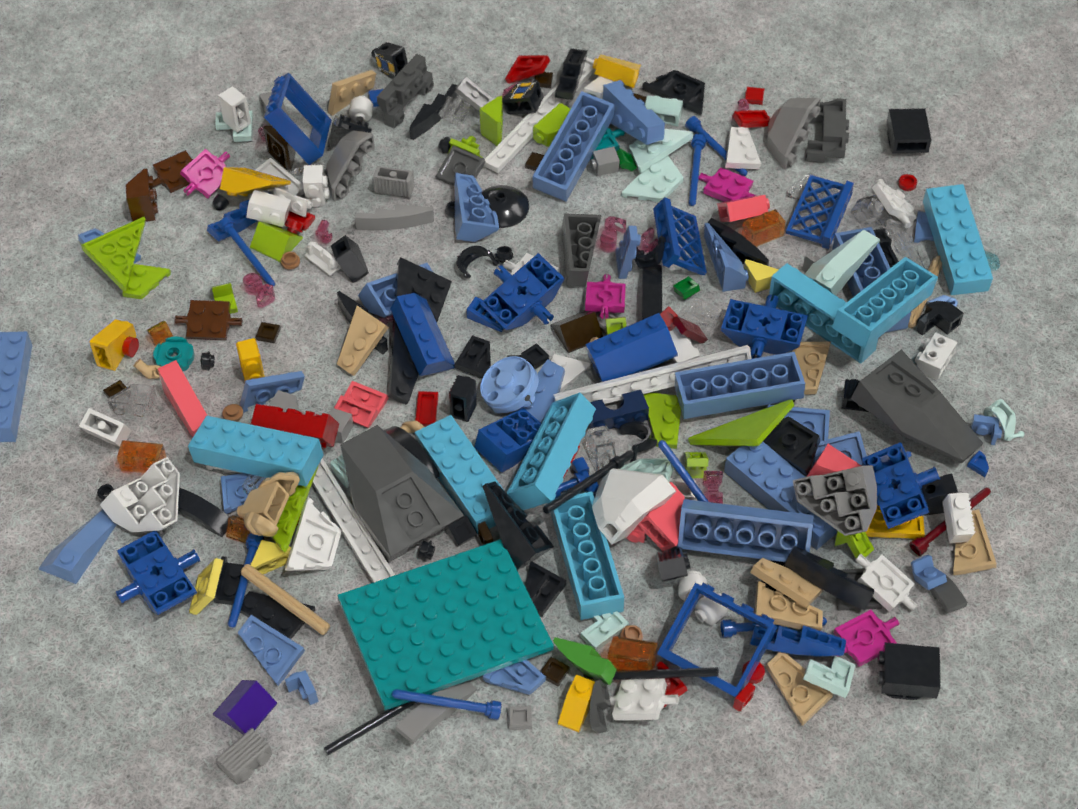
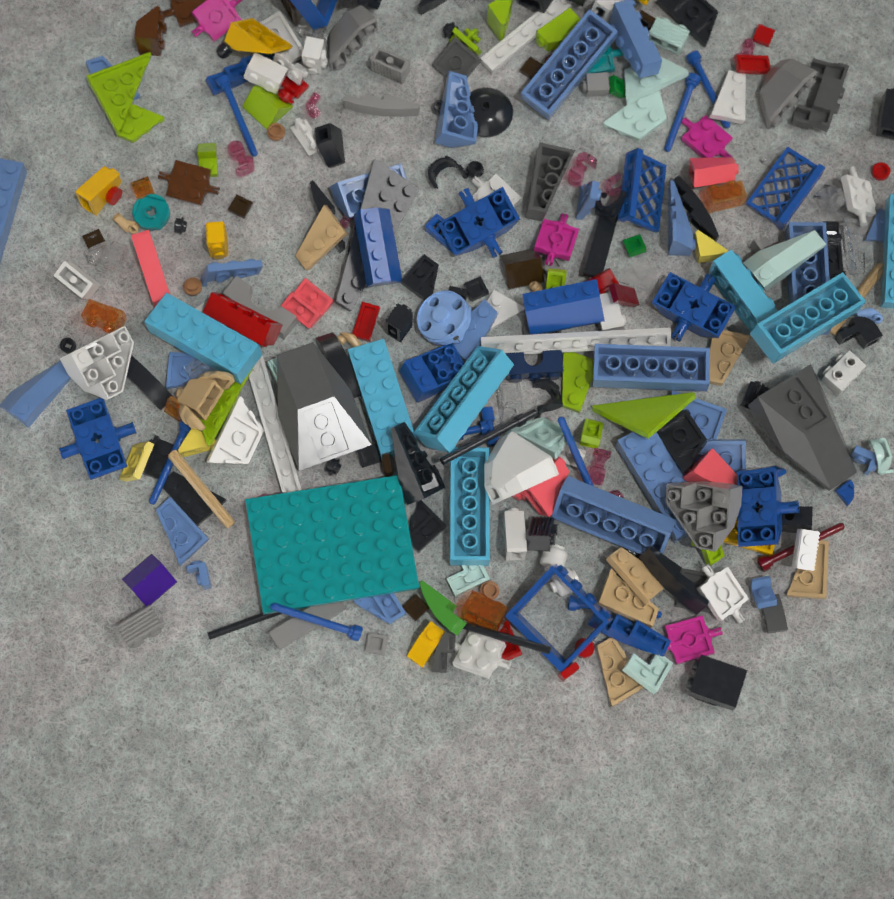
camera: 10 degrees right, 20 degrees up
(644, 574) = (514, 535): none -> white slope

